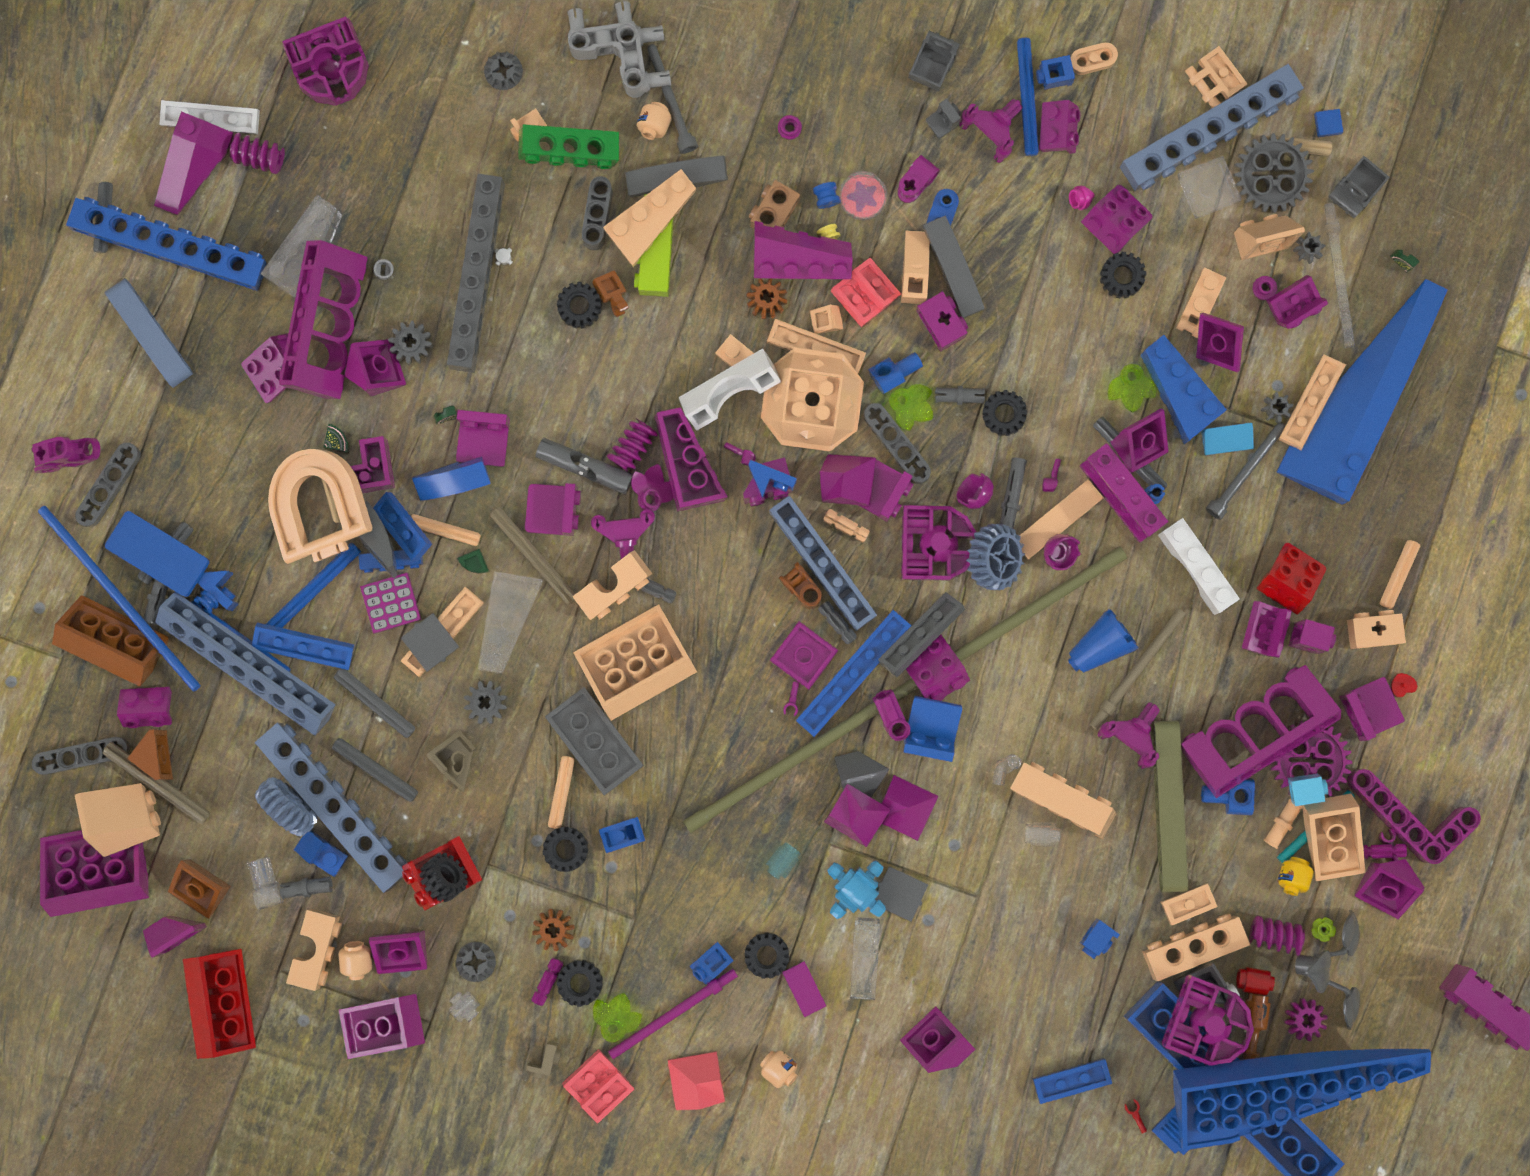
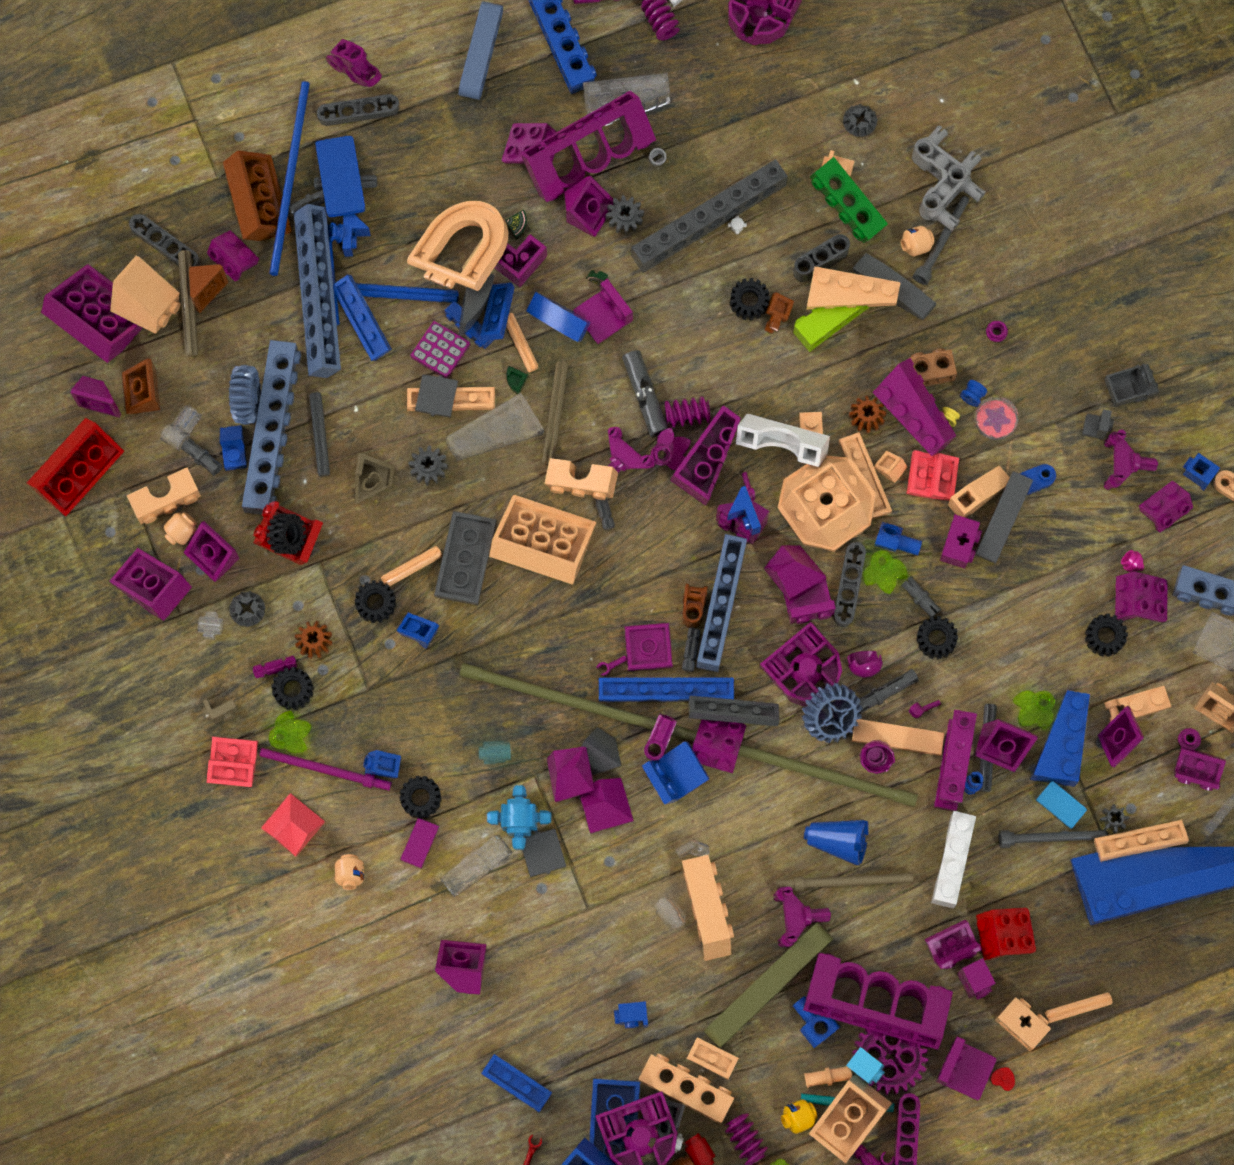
camera: 50 degrees right, 10 degrees down
(374, 702) = (364, 395): dark grey axle -> none
(552, 509) = (597, 398): magenta bracket -> none
(846, 525) = (762, 598): light nougat axle -> none
(919, 177) = (1044, 442): magenta piece -> none
(1027, 96) = (1167, 467): blue axle -> none

